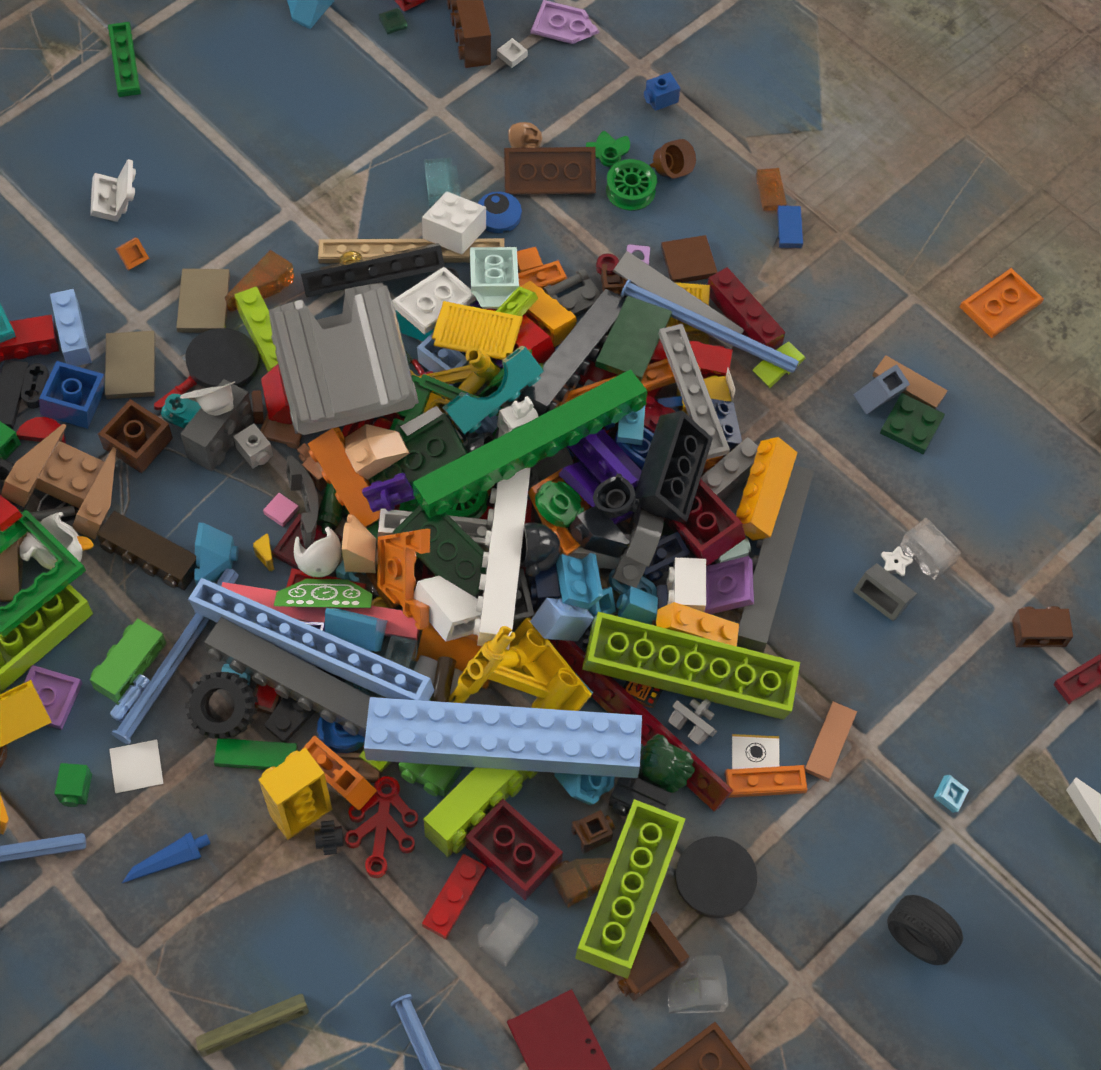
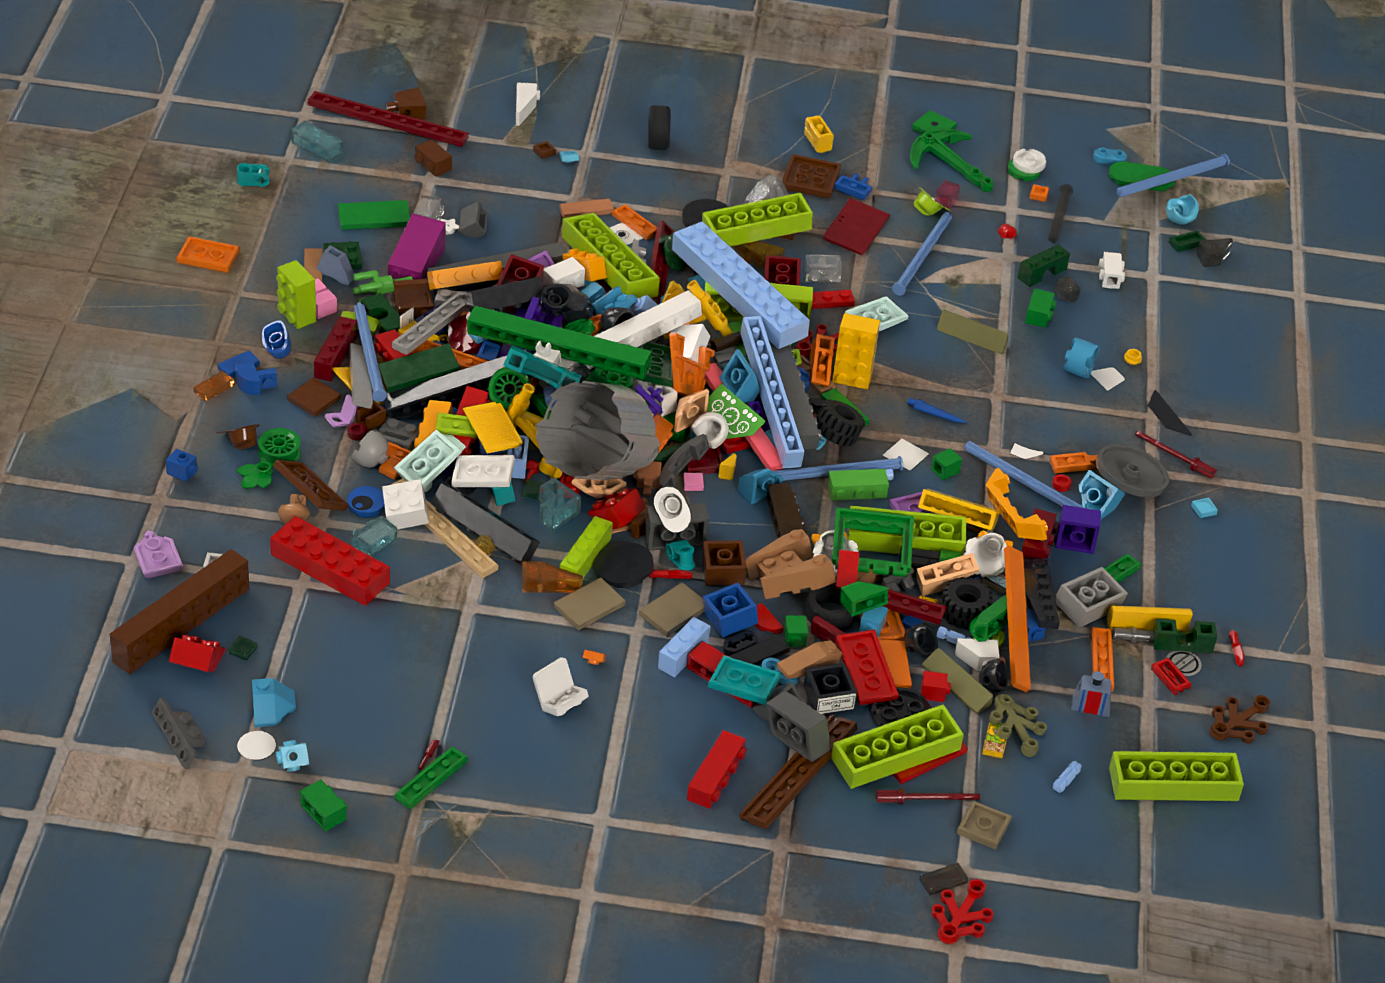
camera: 130 degrees left, 20 degrees down
(22, 906) = (1024, 452): none -> white sticker
(152, 75) = (429, 752): none -> dark red piece
(365, 921) = (880, 309): none -> light aqua slope
(437, 129) = (330, 560): none -> red brick
(554, 243) = (372, 450): none -> light grey cylinder
(754, 216) = (253, 381): none -> blue brick
(767, 425) = (412, 294): none -> reddish brown panel
(783, 395) = (380, 308): none -> dark green arch
(797, 268) = (276, 339): none -> blue piece
(823, 413) = (377, 284): none -> bright green plant
(845, 306) = (296, 294): none -> lime brick
(856, 348) = (325, 300): none -> bright pink piece
(857, 486) = (418, 248): none -> magenta slope
(971, 500) = (373, 214): none -> green tile
(988, 779) = (544, 150): none -> reddish brown tile

